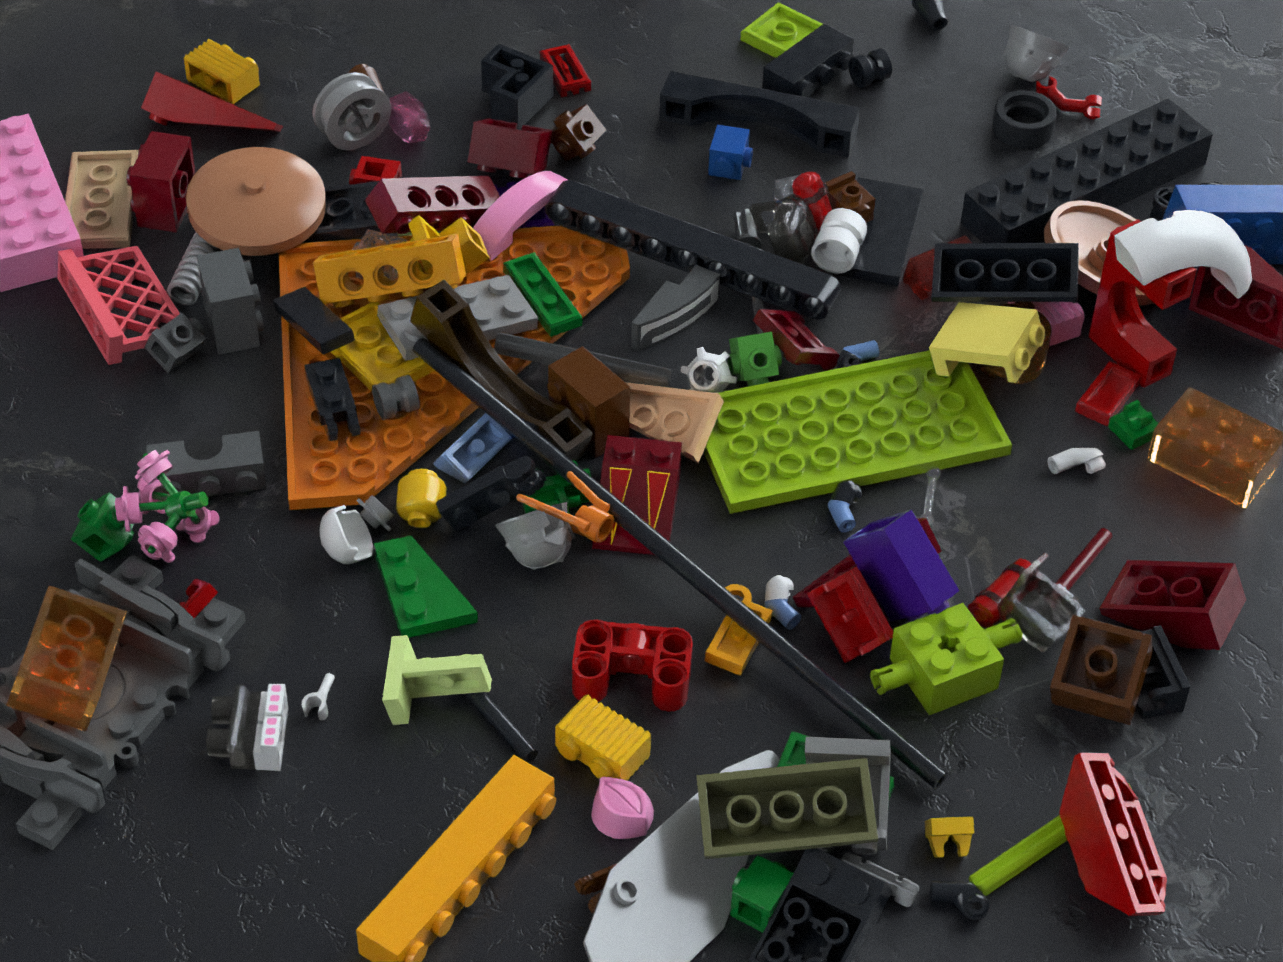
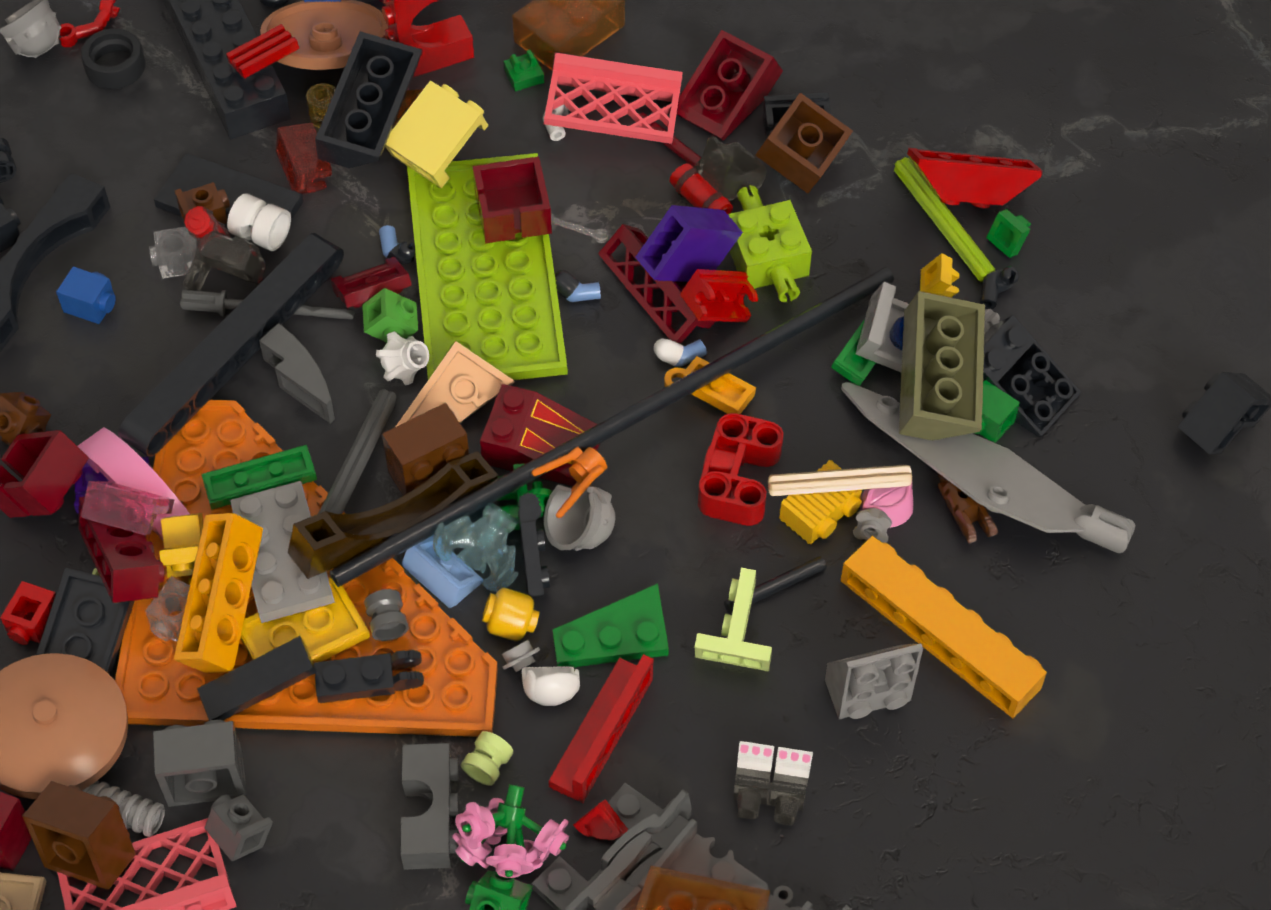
camera: 80 degrees left, 10 degrees up
(150, 235) = (79, 834): none -> reddish brown brick
(260, 503) = (487, 758): none -> yellowish green wheel
(303, 590) = (602, 728): none -> red fence
(318, 698) = (736, 726): white hand -> none
(370, 789) = (873, 680): none -> light grey slope
(474, 190) = (124, 506): none -> clear pink bracket
(496, 450) = (483, 543): none -> clear light blue animal
(580, 791) = (872, 522): none -> light grey plate
(615, 737) = (839, 480): none -> tan axle
(930, 420) = (512, 199): none -> dark red piece
(1045, 195) = (262, 51): none -> red tile
(1046, 903) = (1009, 232): none -> green tile
(1108, 393) = (480, 80): red tile -> none
(1141, 498) = (616, 80): none -> coral fence

